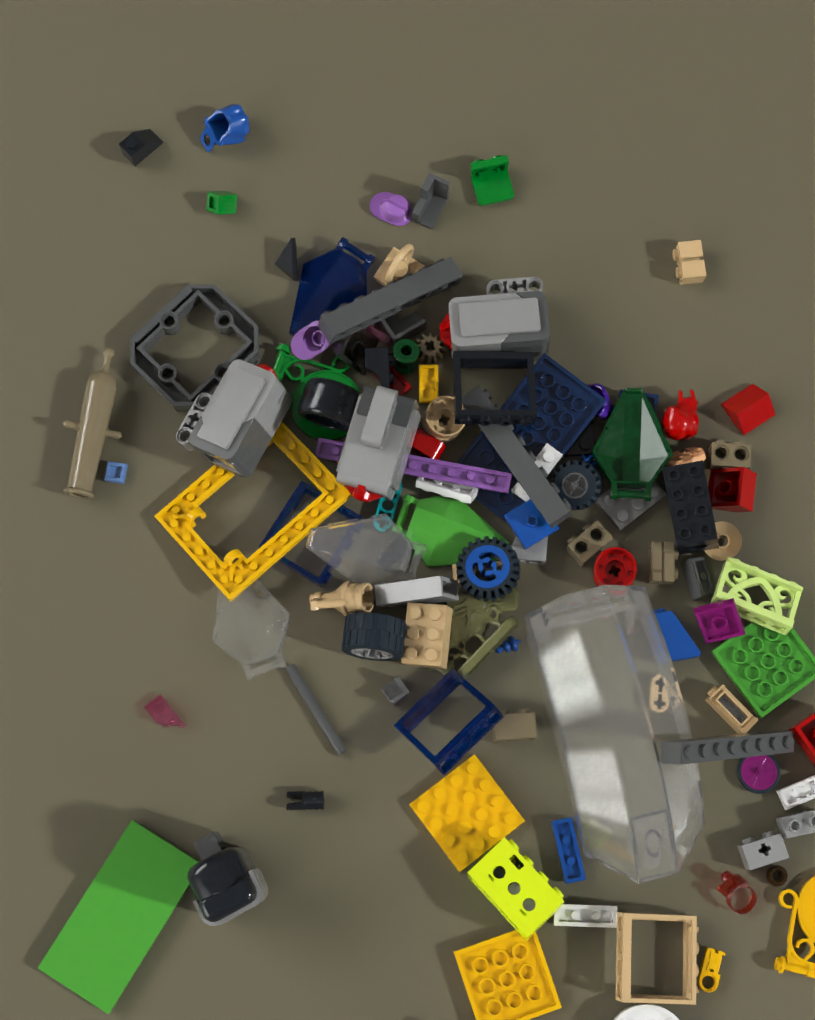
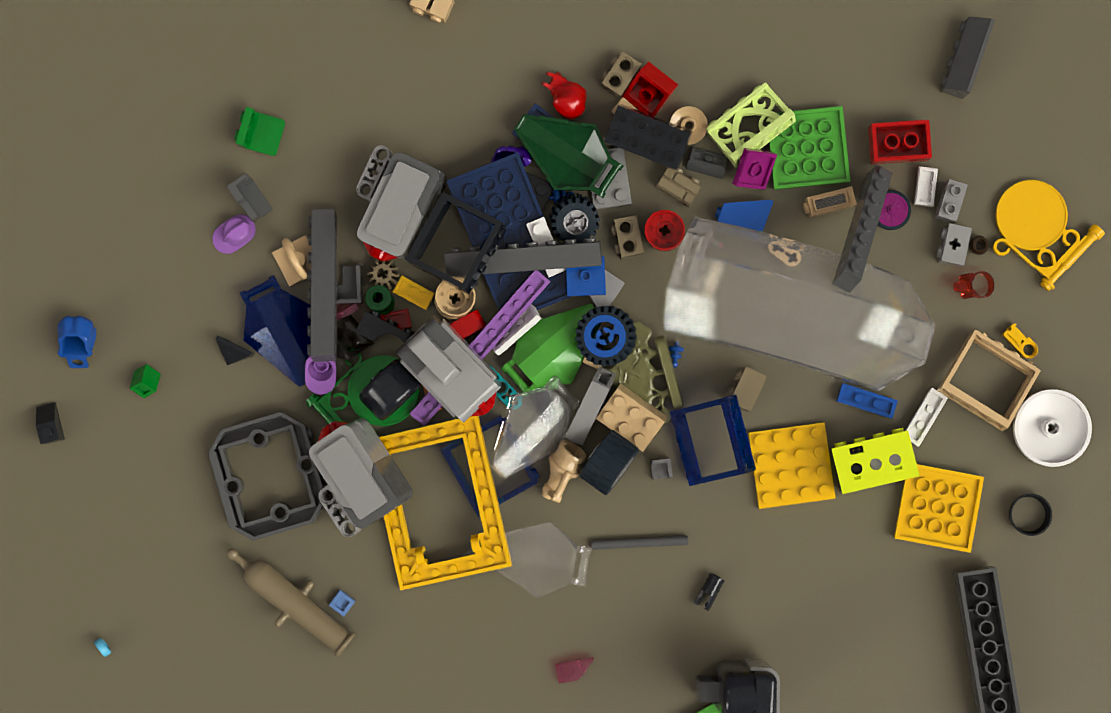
camera: 55 degrees left, 10 degrees up
(689, 455) = (604, 112): light nougat tile -> none
(749, 408) = (588, 32): red slope -> none

